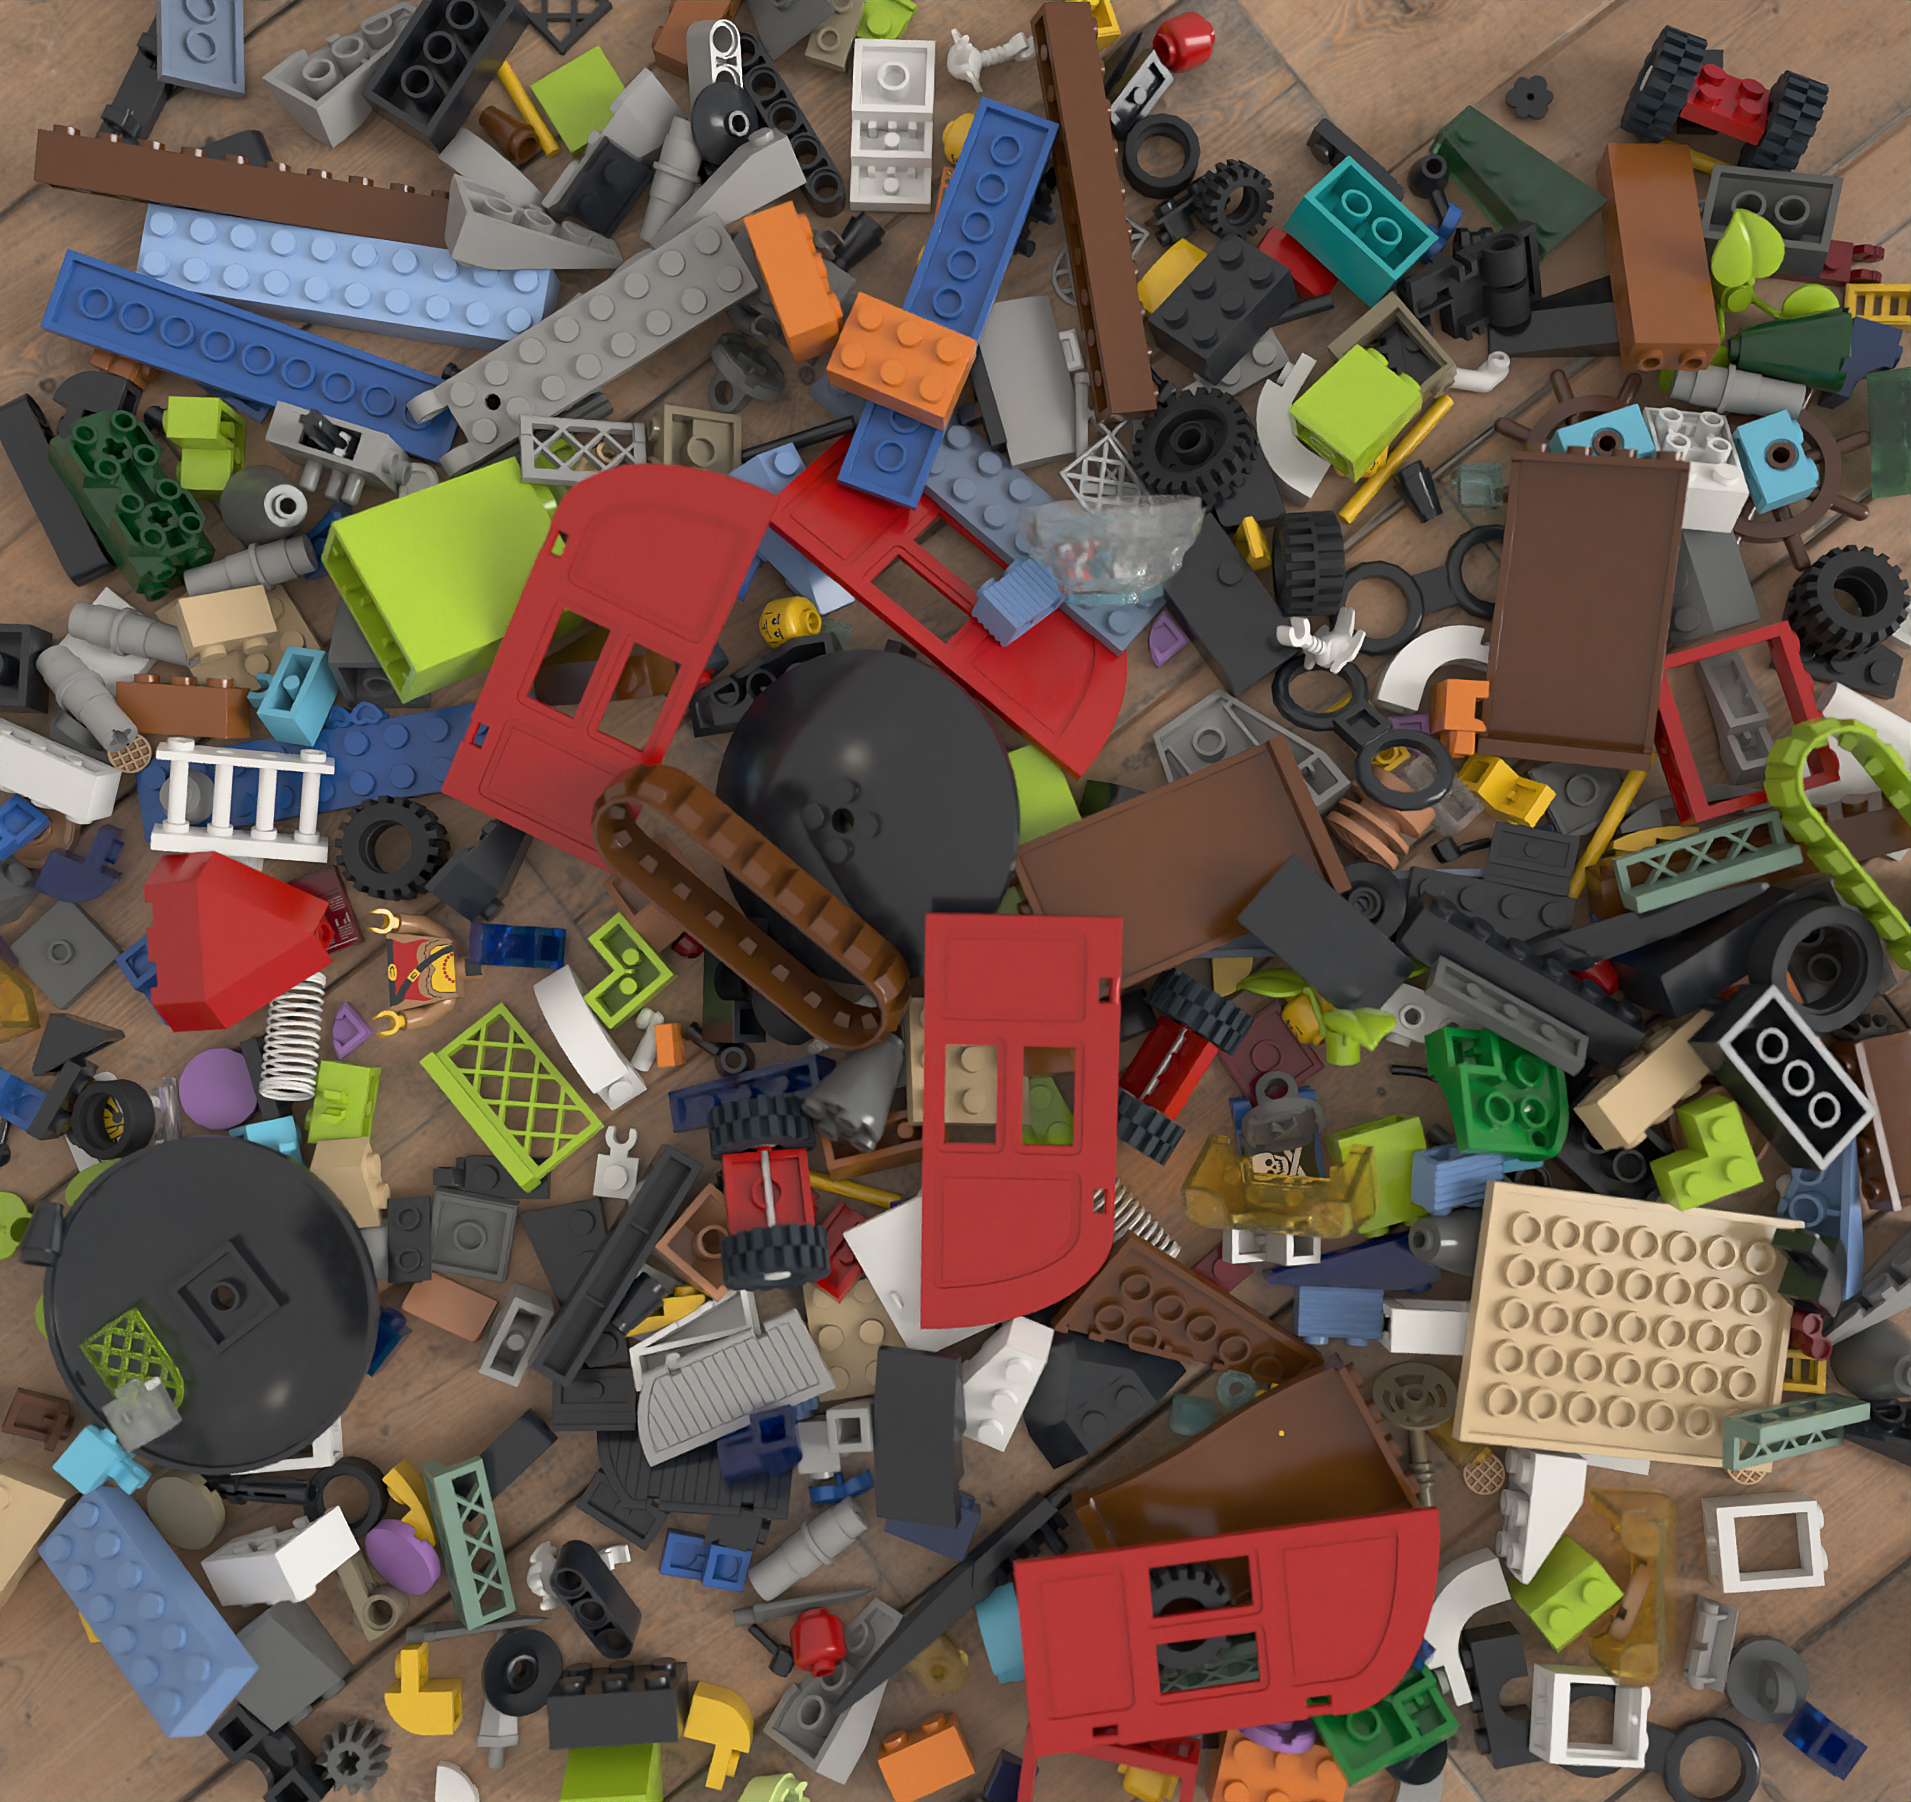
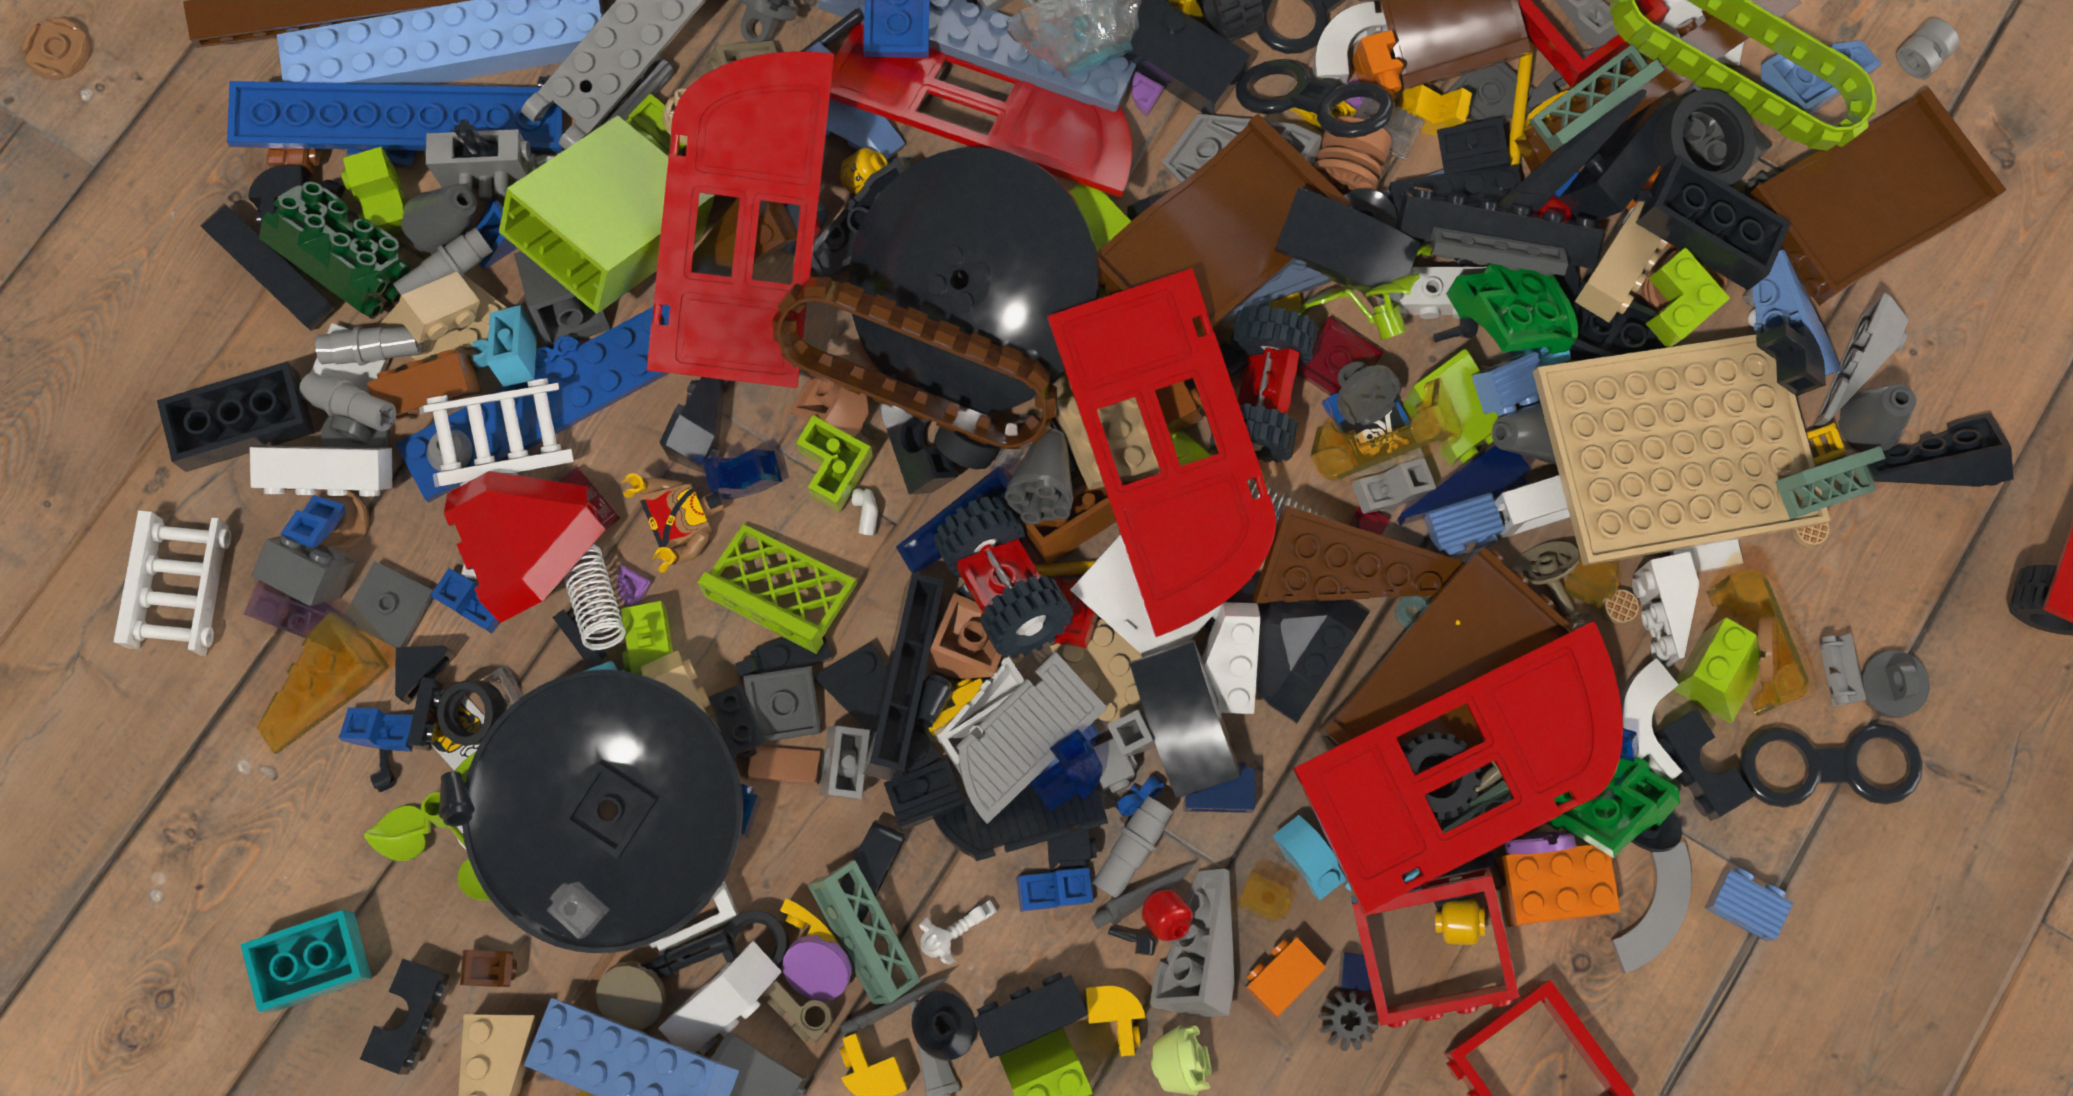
camera: 25 degrees left, 10 degrees down
(81, 878) = (384, 542): clear blue brick -> none
(97, 1459) = (553, 970): medium azure brick -> none
(133, 757) = (395, 437): tile -> none
(150, 1340) = (560, 859): clear neon green window -> none
(218, 1089) = (543, 659): medium lavender tile -> none
(360, 842) = (609, 412): black tyre -> none
(561, 426) = (655, 115): light grey window -> none
(587, 1039) = (822, 521): white arch -> none
(595, 1599) = (988, 956): black beam -> none
(618, 1171) = (878, 618): white plate -> none
(634, 1525) = (986, 875): black hinge -> none
(670, 1044) = (886, 501): orange tile -> none
(687, 946) = (872, 428): dark red hinge -> none
(721, 1051) = (925, 501): black bar -> none
(963, 1588) = (1265, 822): black piece -> none
(1016, 601) = (1028, 90): medium blue brick -> none
(1190, 1414) = (1382, 642): clear light blue slope -> none
(1301, 1018) = (1352, 319): yellow head -> none
(1324, 647) = (1261, 55): white piece -> none
(1447, 849) = (1411, 169): black hand -> none
(1551, 1714) = (1745, 759): white window -> none
(1722, 1547) = (1821, 596): white window -> none
(1807, 1336) = (1813, 411): dark red plate -> none
(1824, 1741) = (1956, 706): clear blue brick -> none

